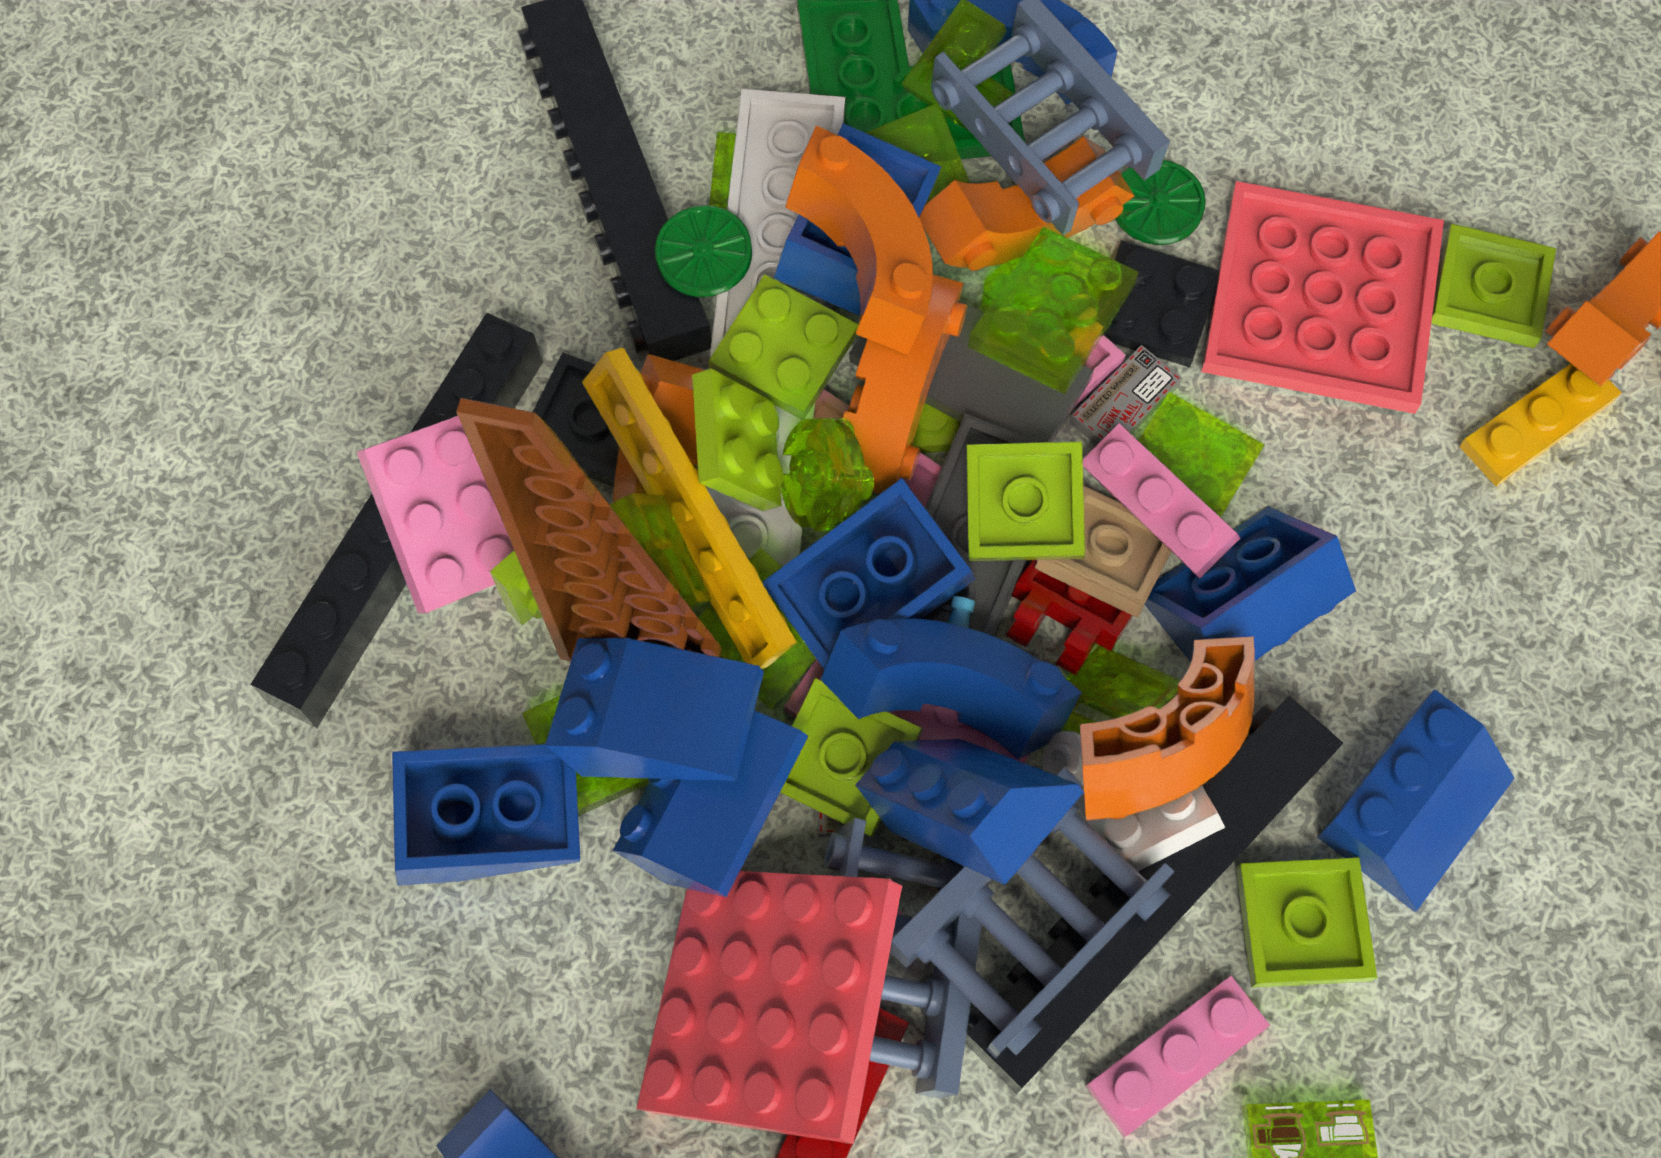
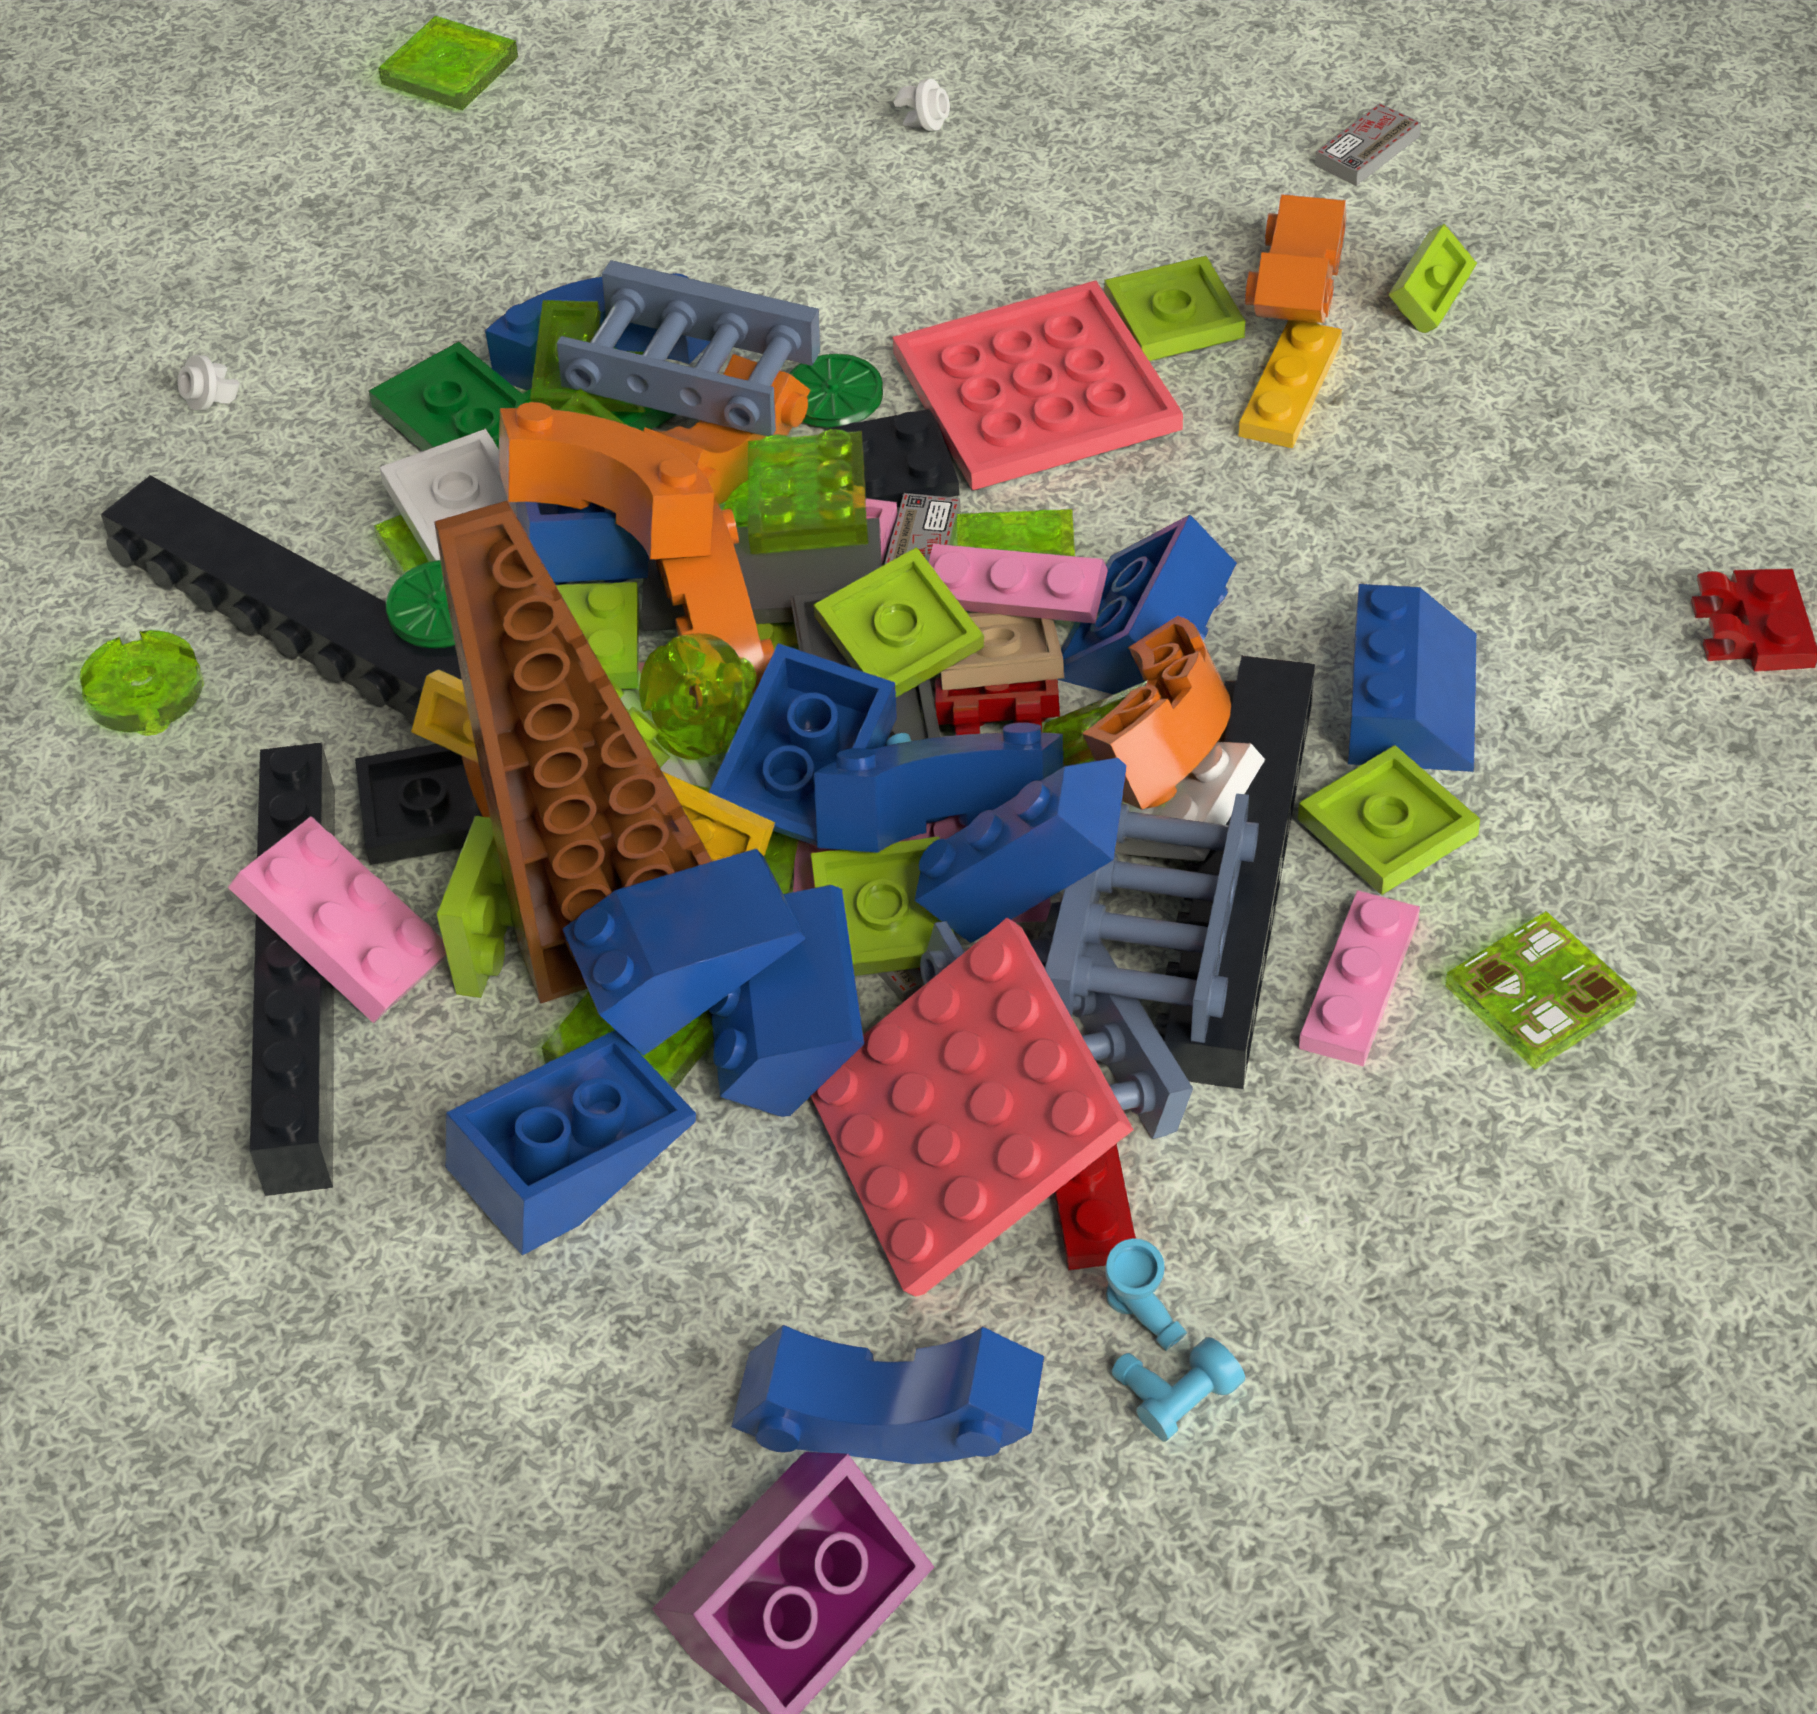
camera: 30 degrees left, 20 degrees down
(469, 204) = (148, 706): none -> clear neon green plate

